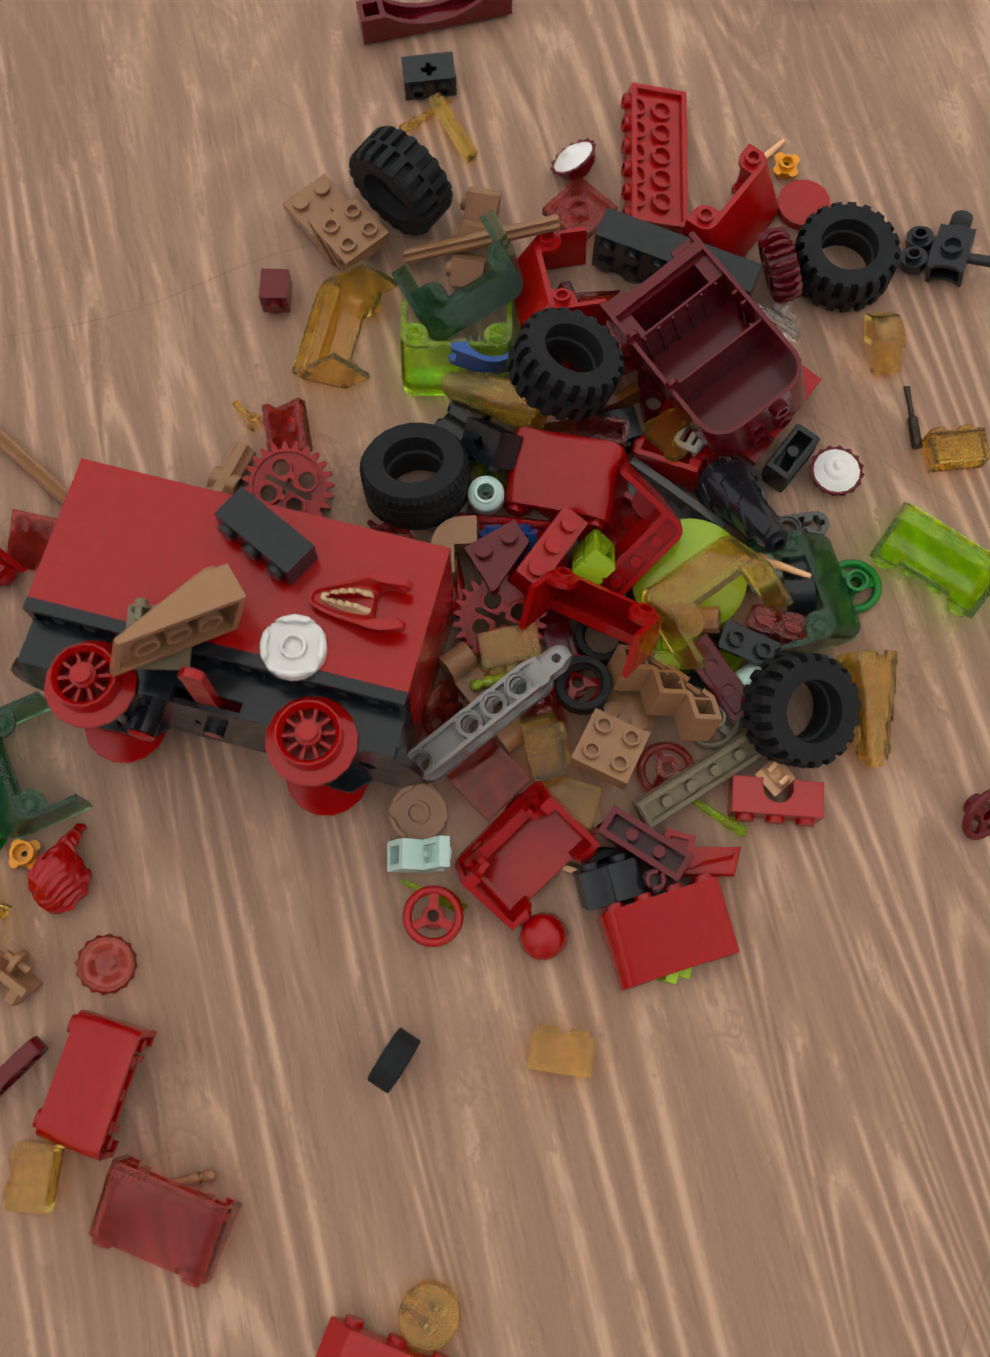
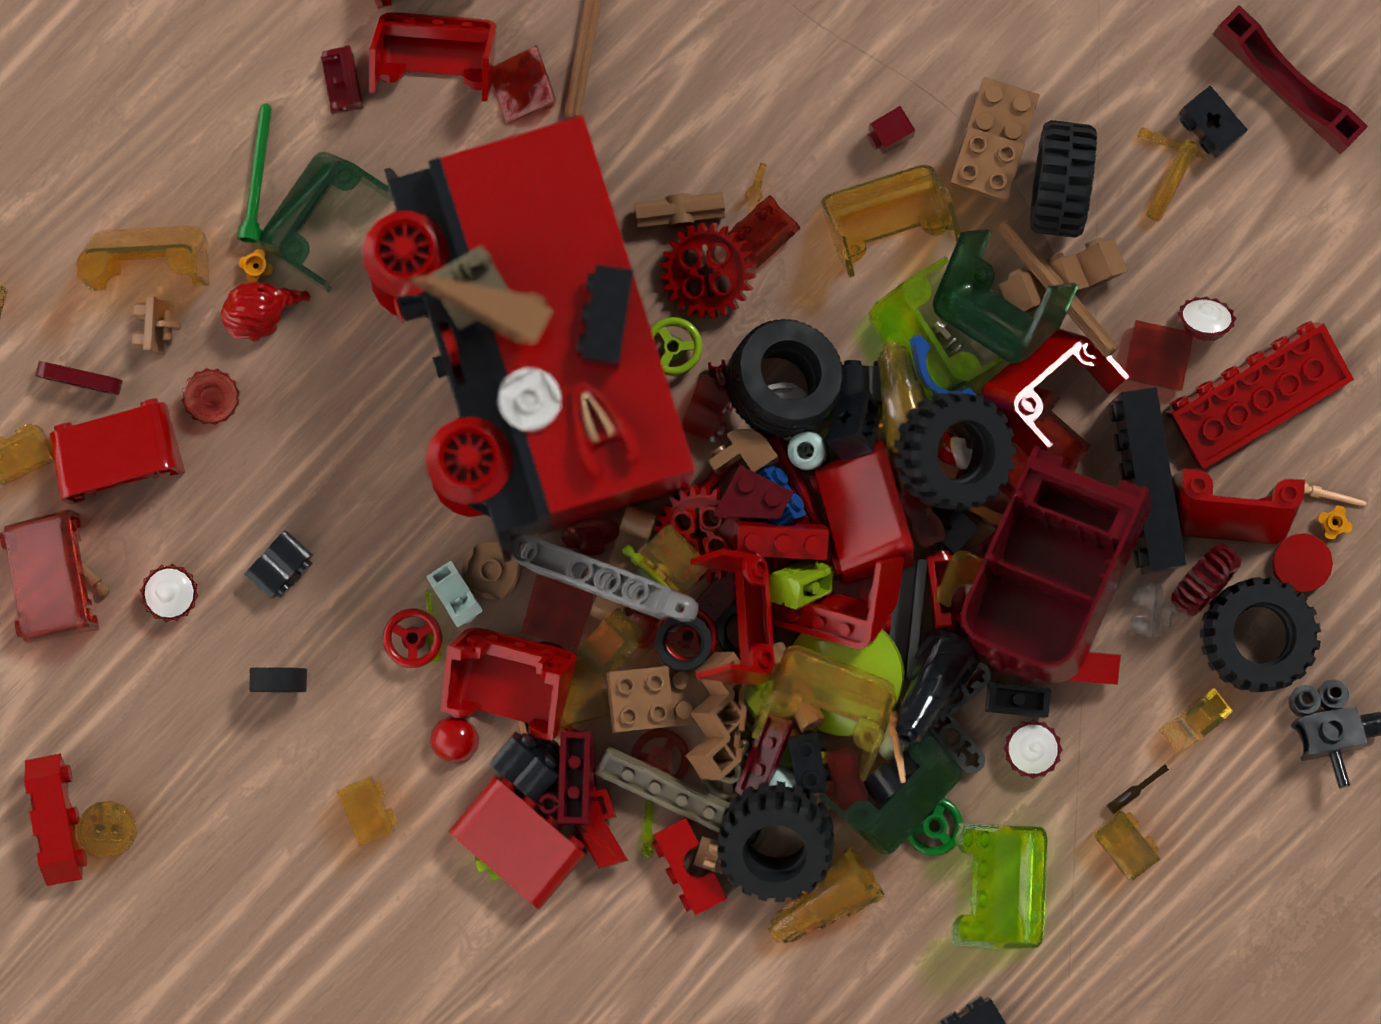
camera: 55 degrees right, 10 degrees up
(252, 1113) = (169, 593): none -> white piece
(293, 995) = (279, 565): none -> black brick

